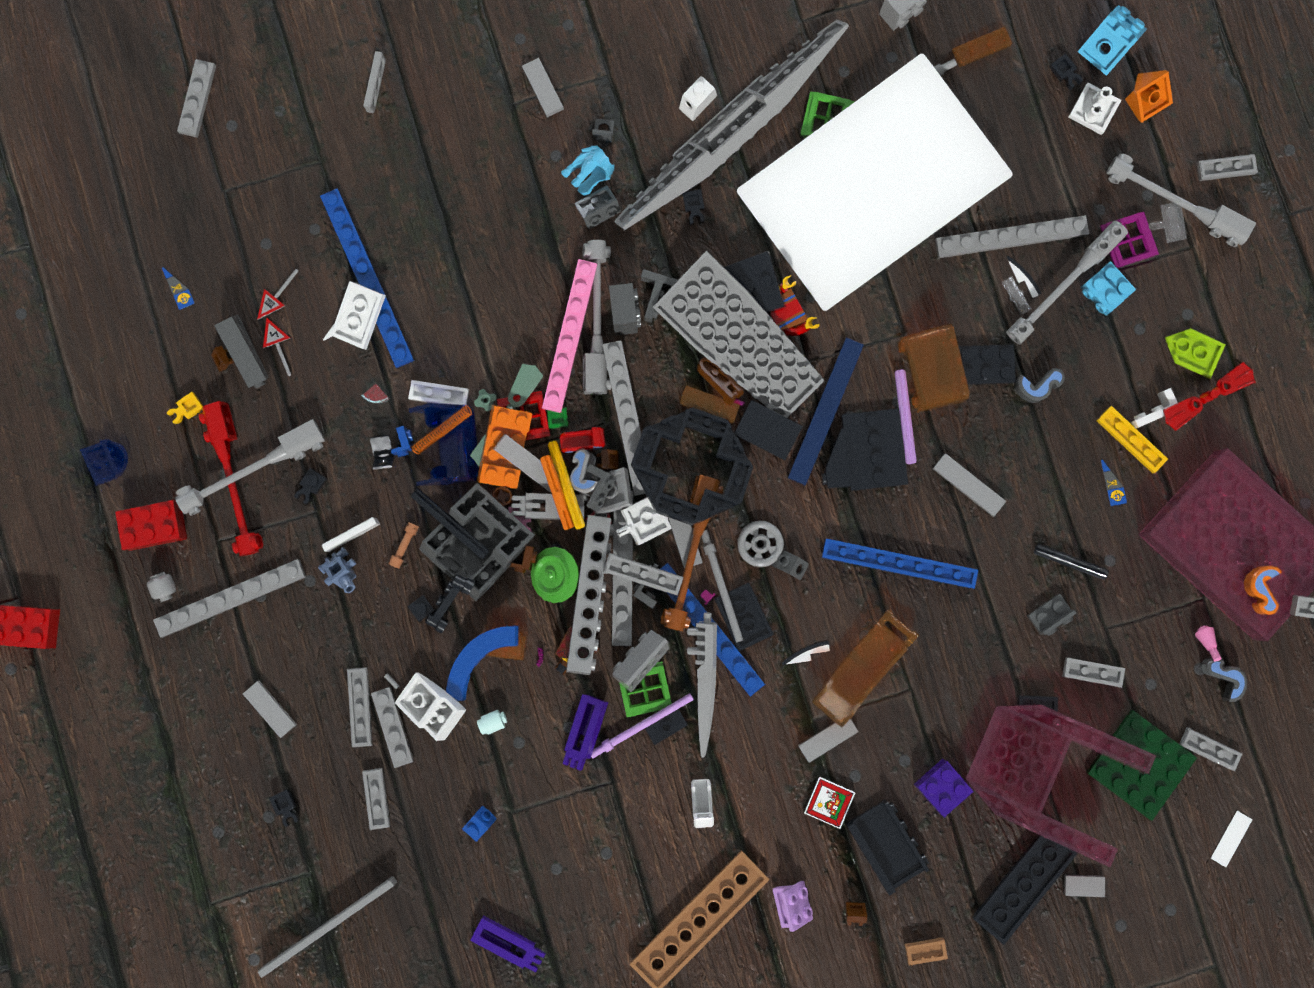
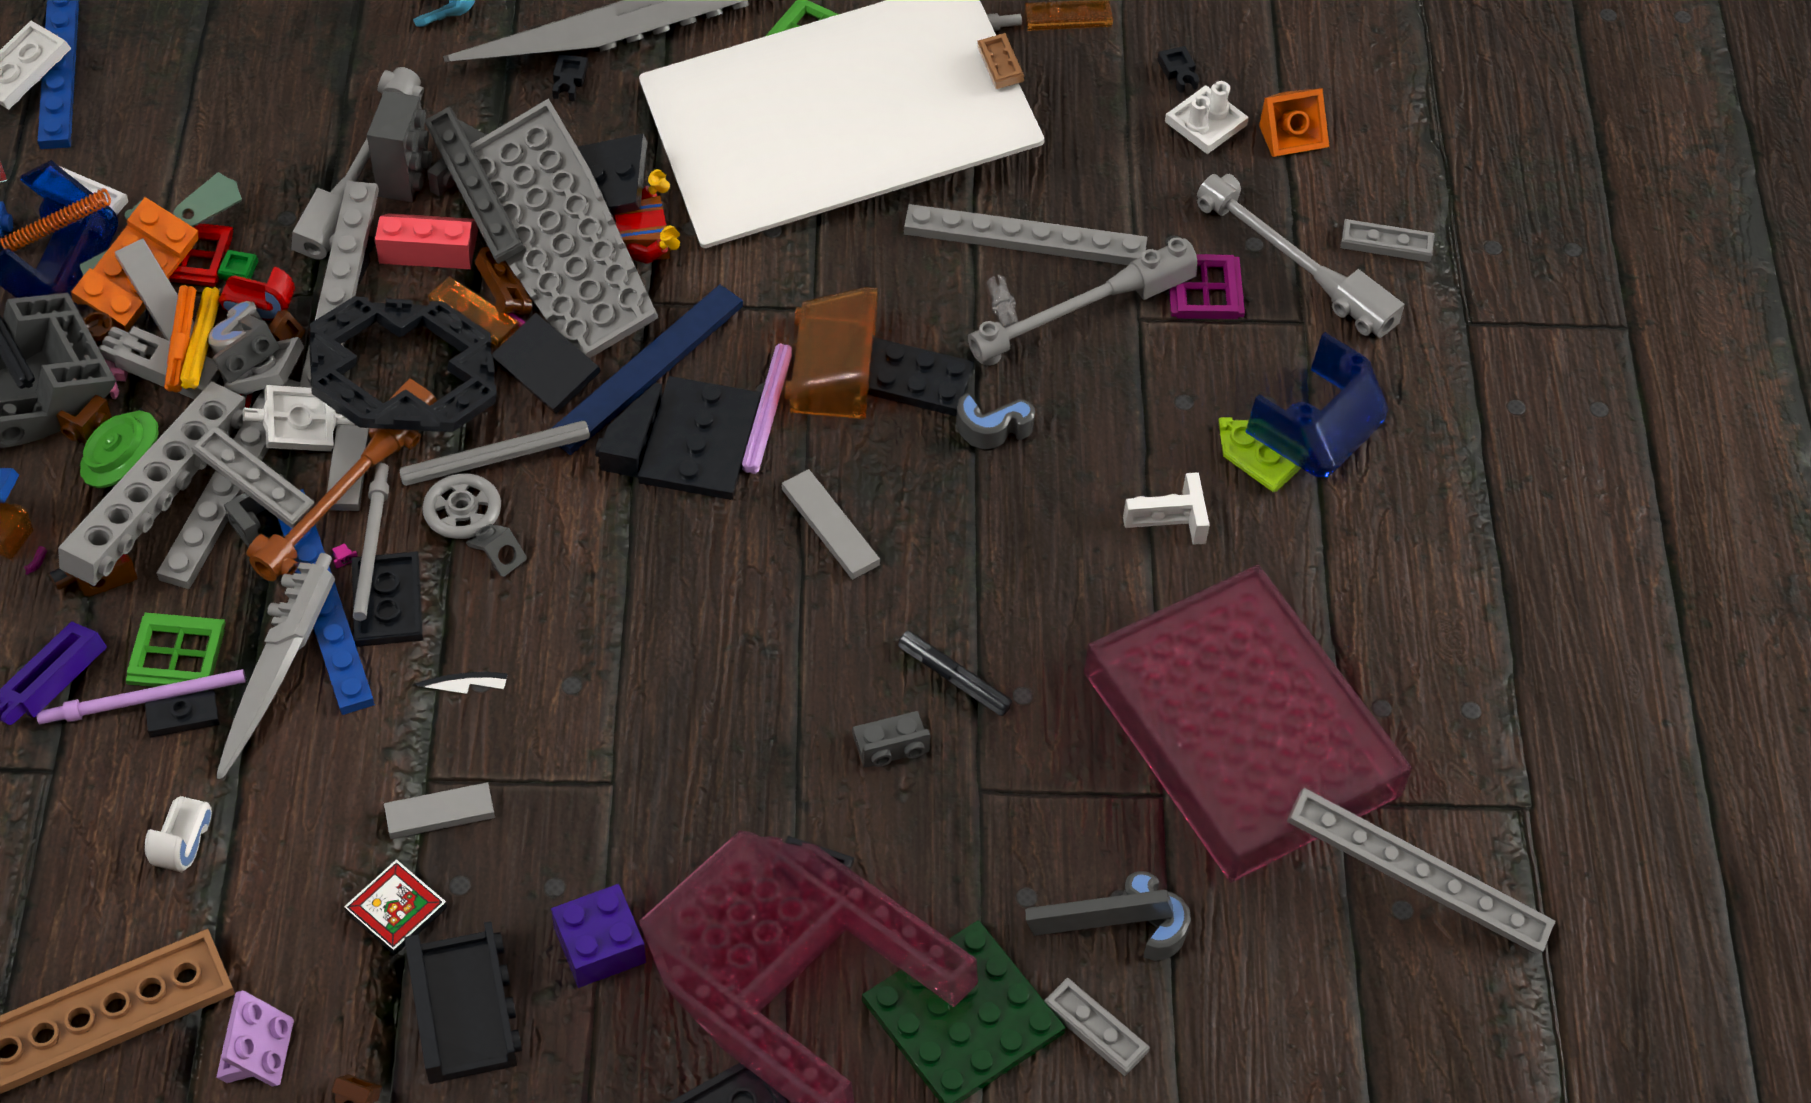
camera: 15 degrees right, 30 degrees down
(569, 336) = (303, 172): bright pink plate -> none
(598, 207) = (429, 43): dark grey bracket -> none
(640, 660) = (189, 597): light grey slope -> none
(661, 360) = (426, 241): none -> coral slope
(679, 321) = (474, 185): none -> dark grey tile
(765, 503) = (494, 453): none -> light grey axle
(863, 669) = (543, 720): clear orange windscreen -> none
(899, 563) = (672, 594): blue plate -> none
(968, 122) = (1000, 61): none -> medium nougat plate
(1022, 275) = (1024, 286): sticker -> none
(1093, 672) = (930, 841): light grey plate -> none
(1107, 288) = (1148, 334): medium azure plate -> none
(1114, 487) = (1067, 598): sticker -> none
(1117, 30) = (1267, 36): medium azure bracket -> none
(1132, 439) = (1117, 534): yellow plate -> none
(1172, 222) = (1277, 277): clear plate -> none
(1184, 411) = (1209, 508): red piece -> none
(1200, 692) = (1099, 912): none -> dark grey tile
(1207, 637) = (1144, 841): bright pink cone -> none
(1232, 342) = (1325, 437): none -> clear blue windscreen
(1258, 589) = (1241, 765): orange animal -> none

